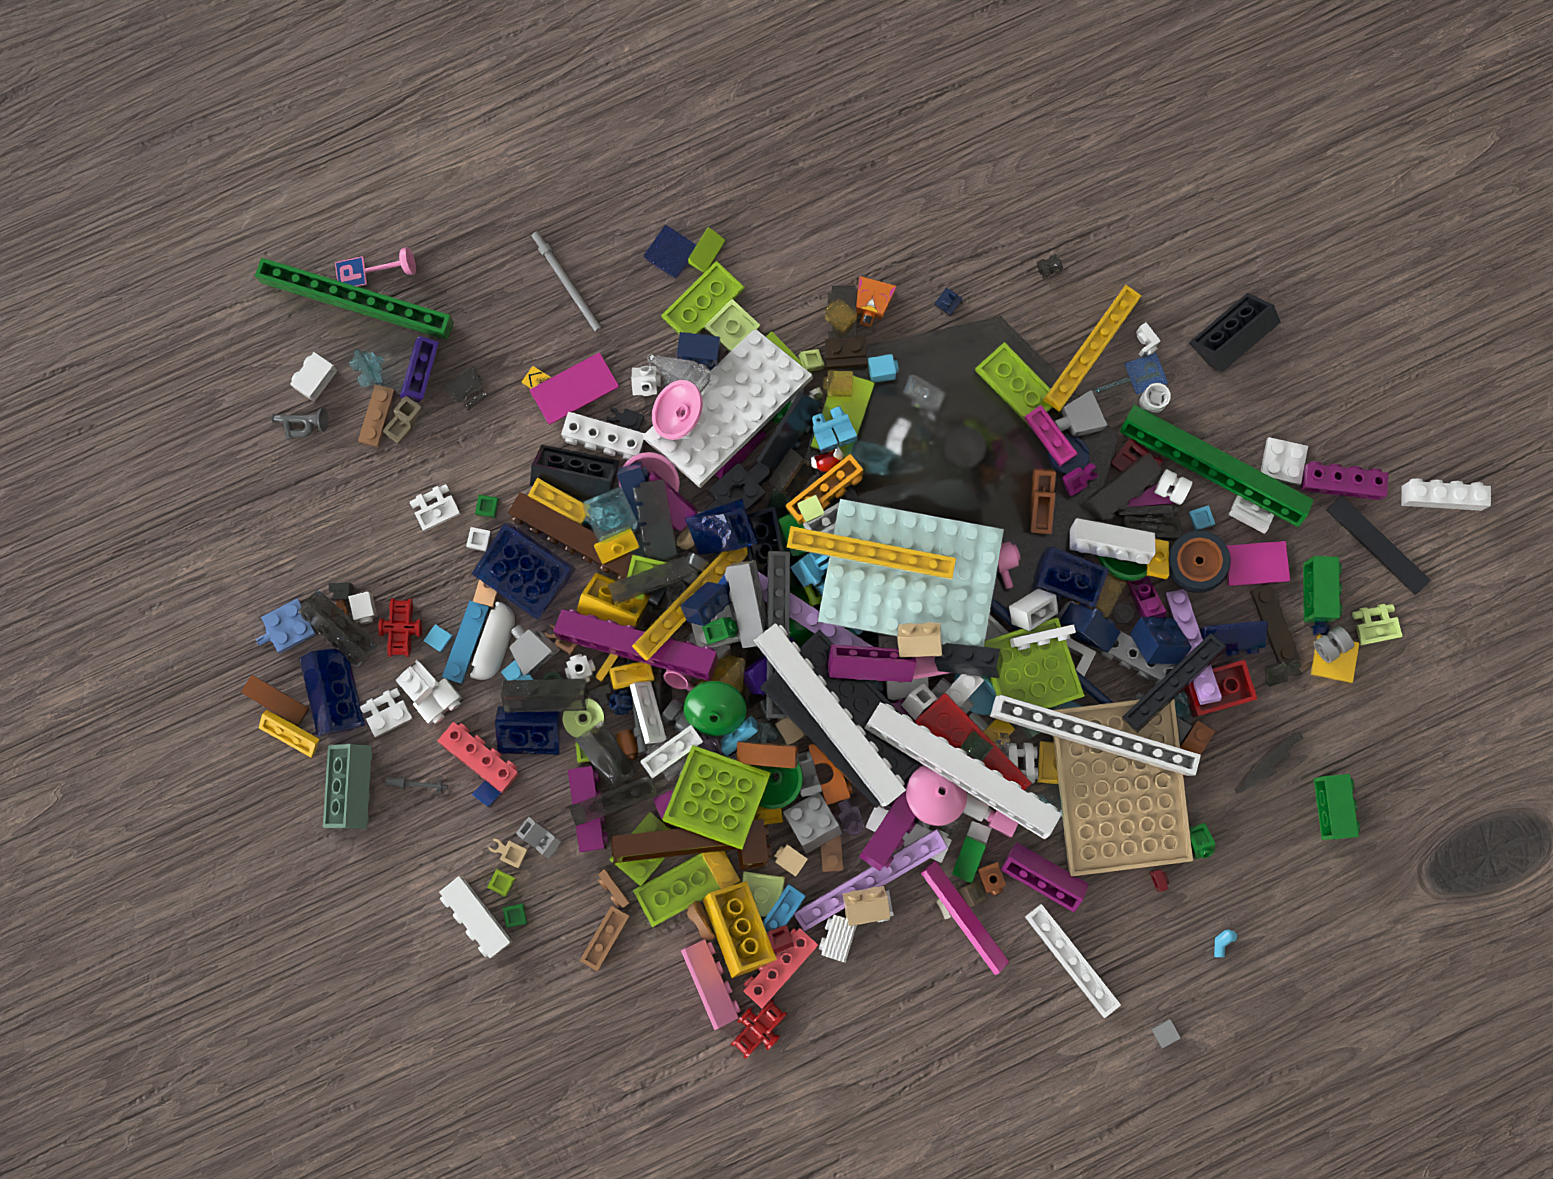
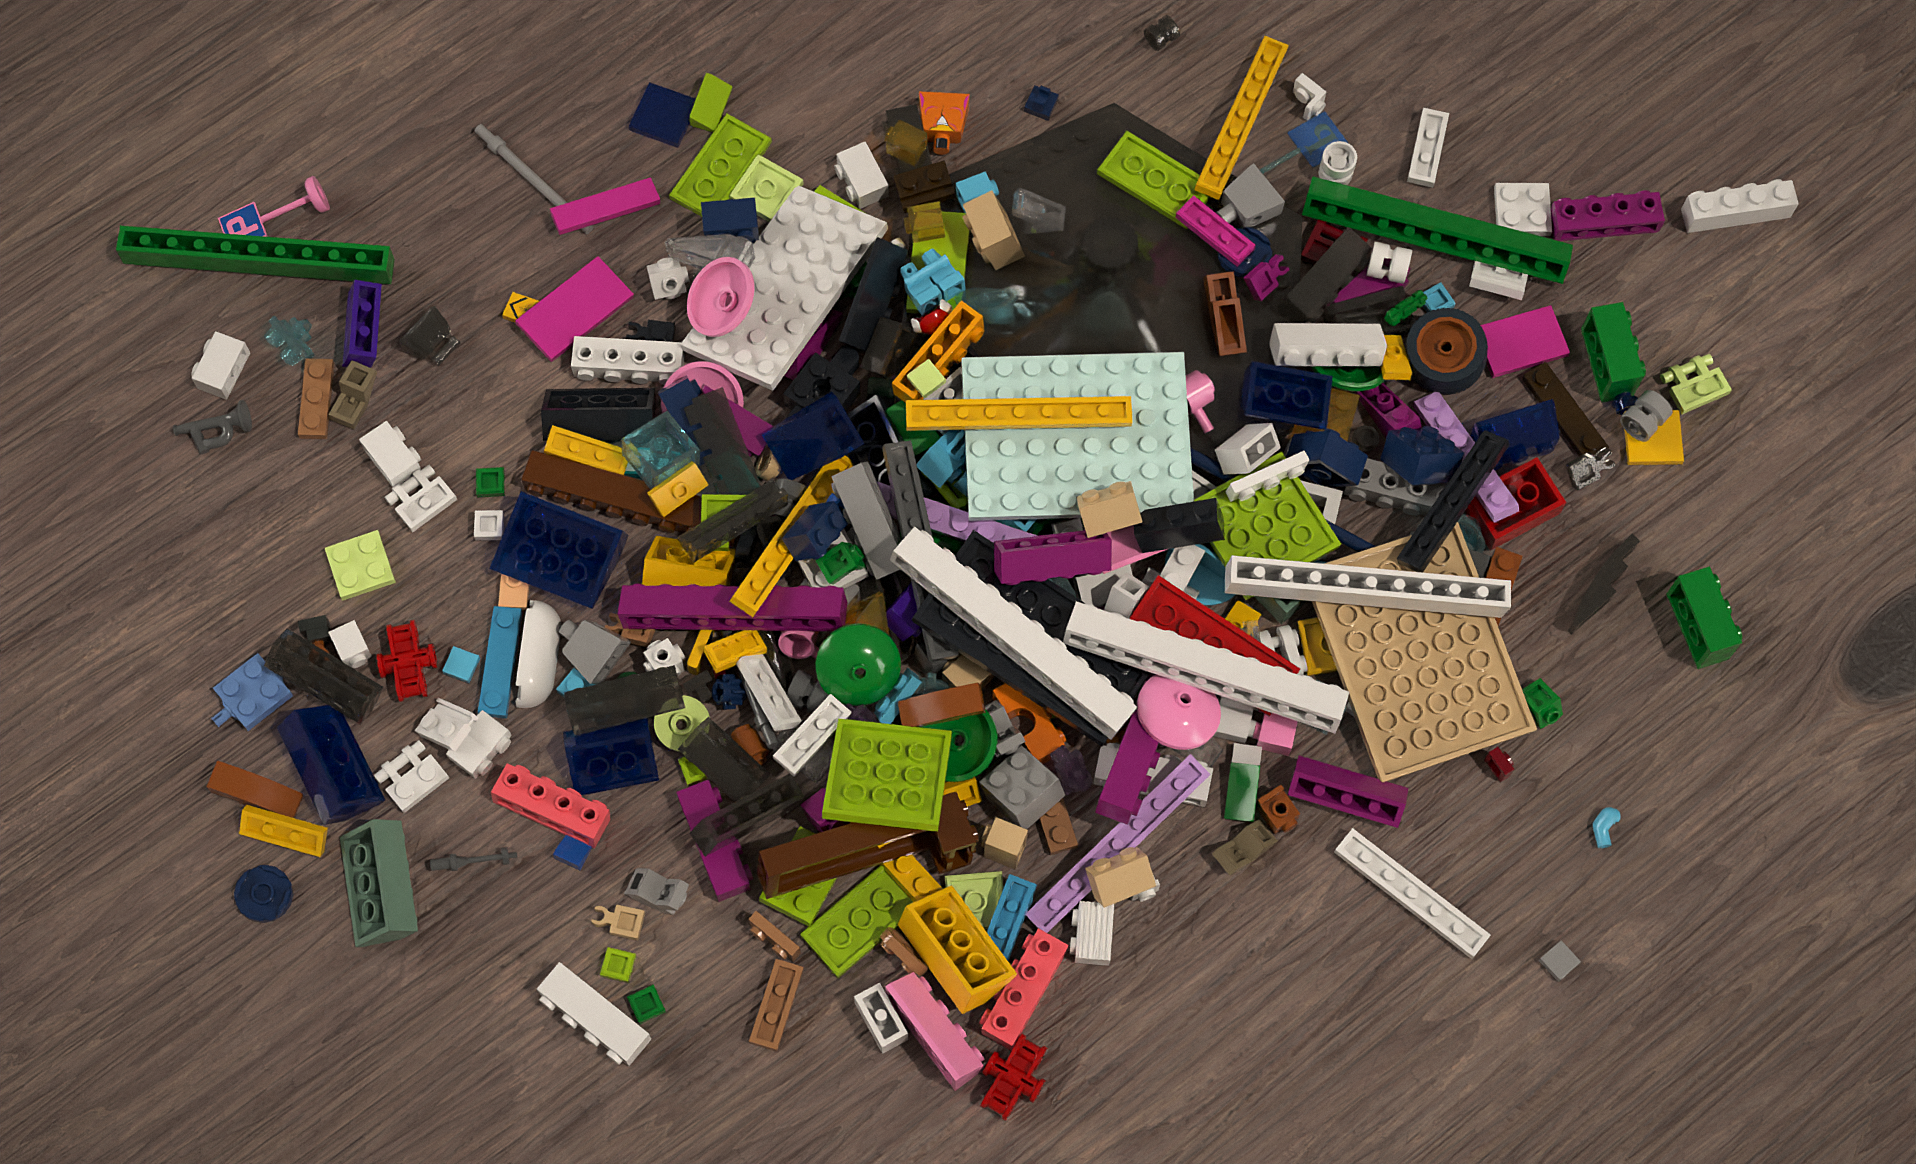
camera: 15 degrees left, 10 degrees down
(267, 774) = (263, 893): none -> dark blue tile
(382, 548) = (360, 565): none -> yellowish green plate
(419, 470) = (390, 454): none -> white brick
(612, 314) = (605, 206): none -> dark pink tile
(674, 966) = (881, 1018): none -> white brick
(780, 939) = (1015, 946): dark red plate -> none
(803, 330) = (861, 175): none -> white brick
(811, 360) = (881, 208): yellowish green tile -> none
(886, 402) = (992, 231): none -> tan brick
(965, 917) = (1255, 867): dark pink tile -> none
(976, 746) = (1217, 633): clear green slope -> none
(1177, 521) = (1405, 308): none -> green axle
(1225, 398) = (1428, 147): none -> white plate
(1235, 331) = (1420, 63): black slope -> none
(1378, 544) = (1670, 286): black tile -> none

